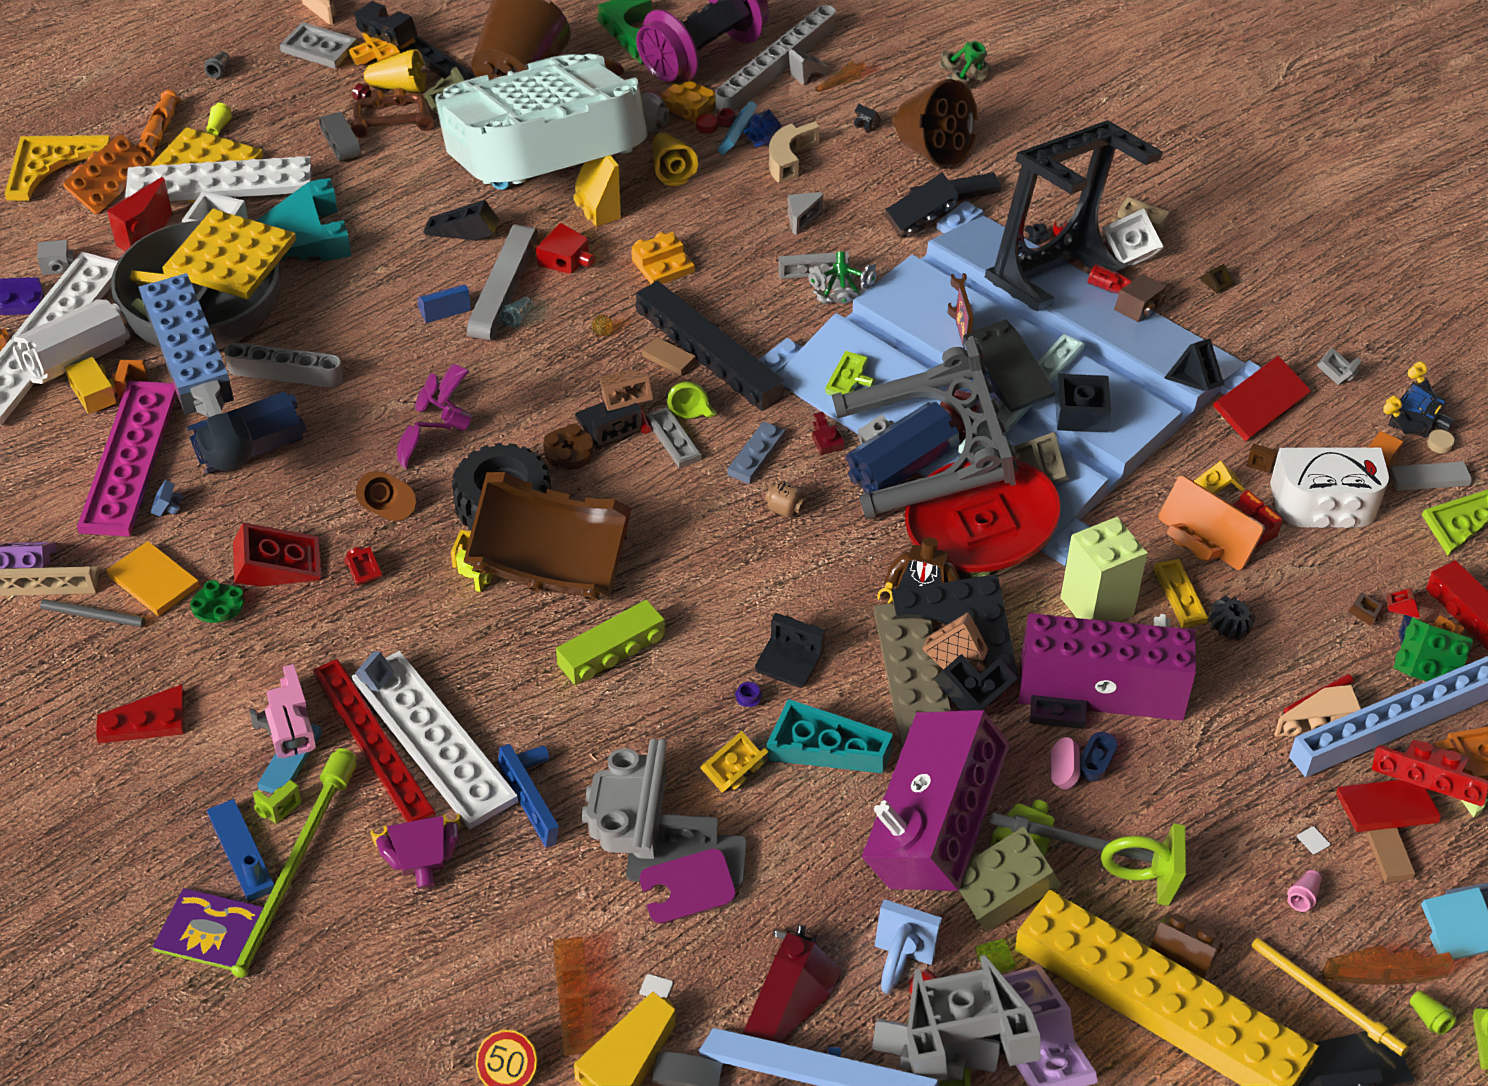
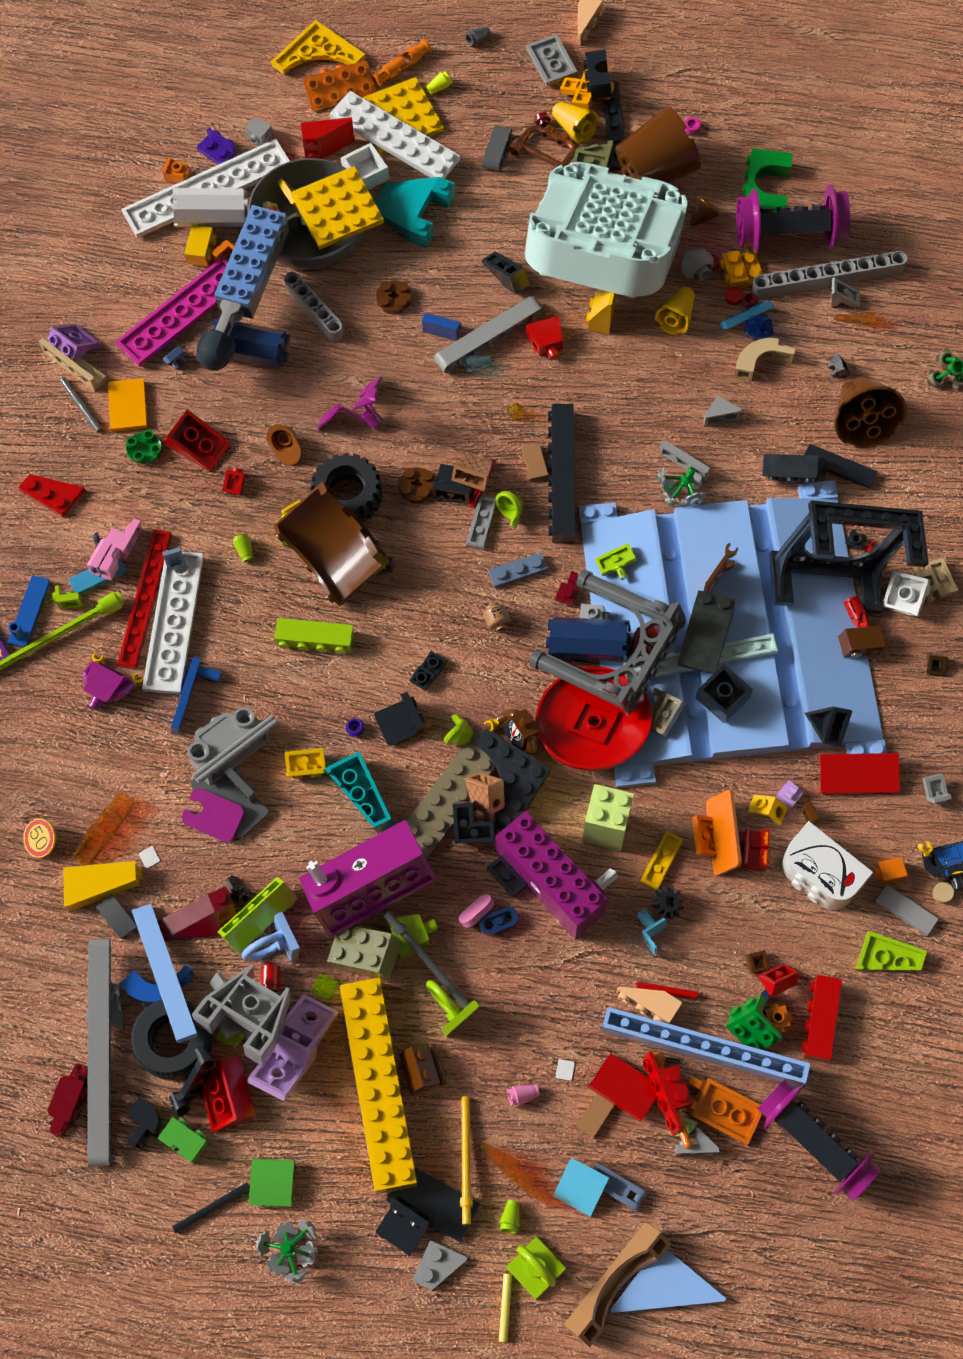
camera: 45 degrees right, 20 degrees up
(351, 308) = (396, 288): none -> reddish brown plate
(438, 616) = (244, 548): none -> lime cone
(662, 258) = (599, 386): light orange plate -> none
(766, 593) = (428, 671): none -> black slope
(850, 940) = (257, 915): none -> lime brick
(864, 619) = (461, 733): none -> lime hat
(1224, 453) = (790, 794): none -> lavender tile
(1242, 651) = (652, 928): none -> medium azure bracket

